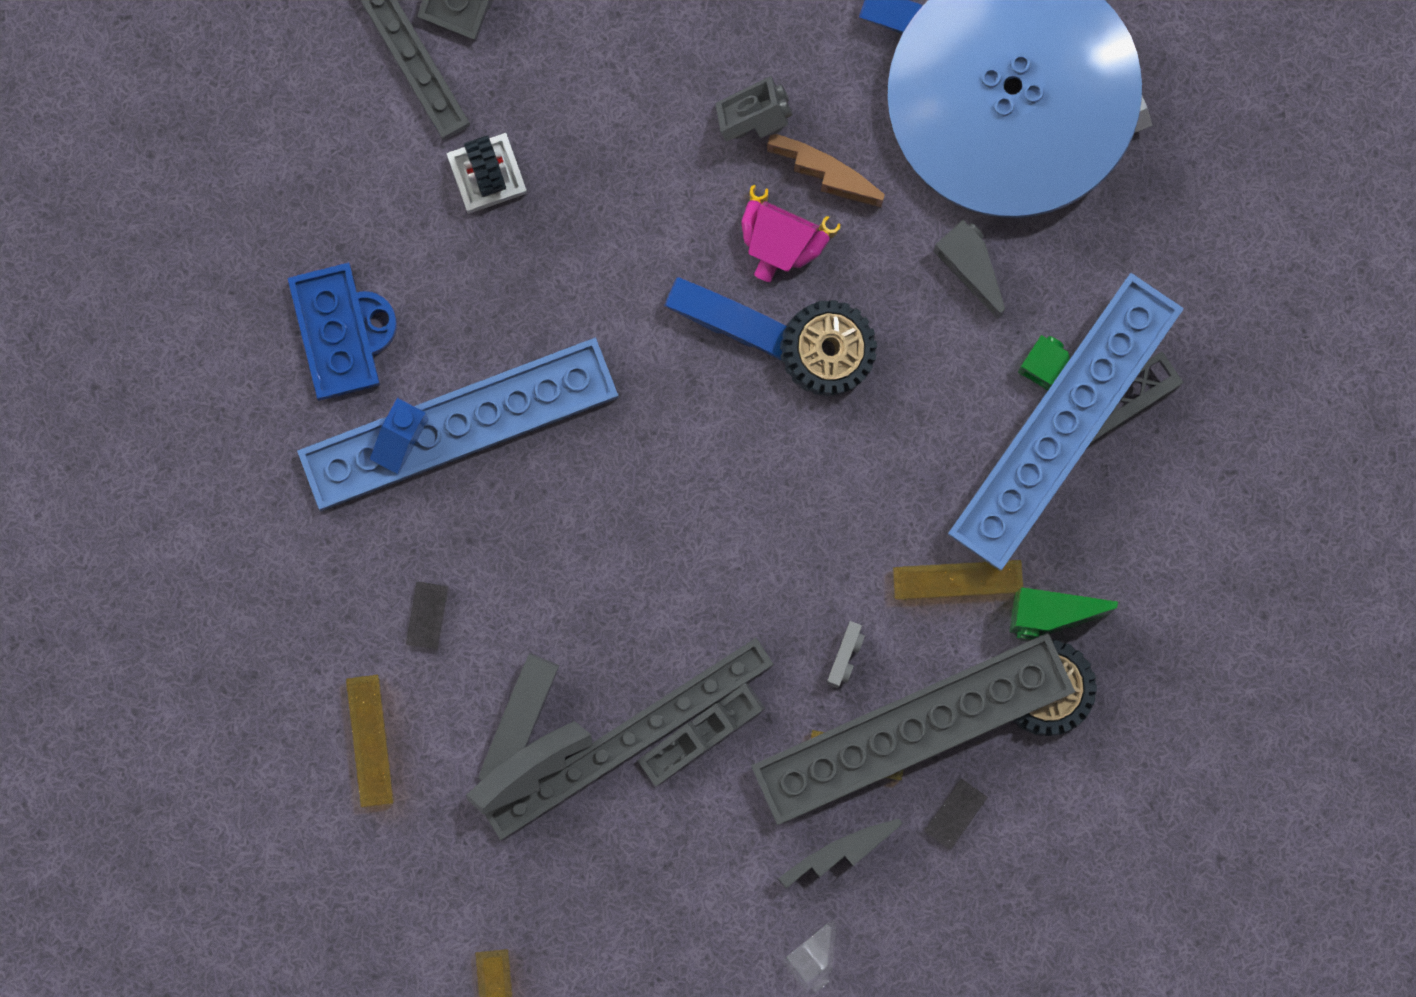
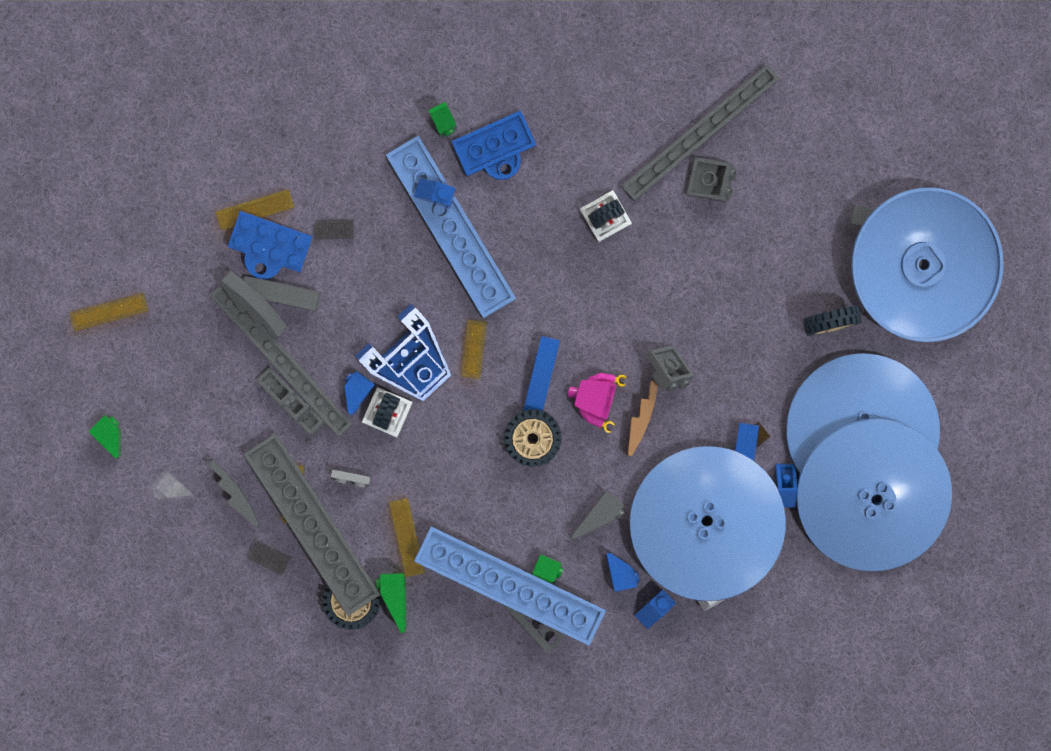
camera: 80 degrees right, 5 degrees up
(279, 404) = (443, 120): none -> green slope
(433, 727) = (268, 244): none -> blue plate
(666, 421) = (474, 349): none -> clear yellow plate
(669, 522) = (413, 361): none -> blue wedge
(703, 621) = (356, 391): none -> blue slope
(746, 578) = (387, 412): none -> plate
(1071, 246) = (621, 573): none -> blue slope
(1135, 201) = (655, 609): none -> blue slope

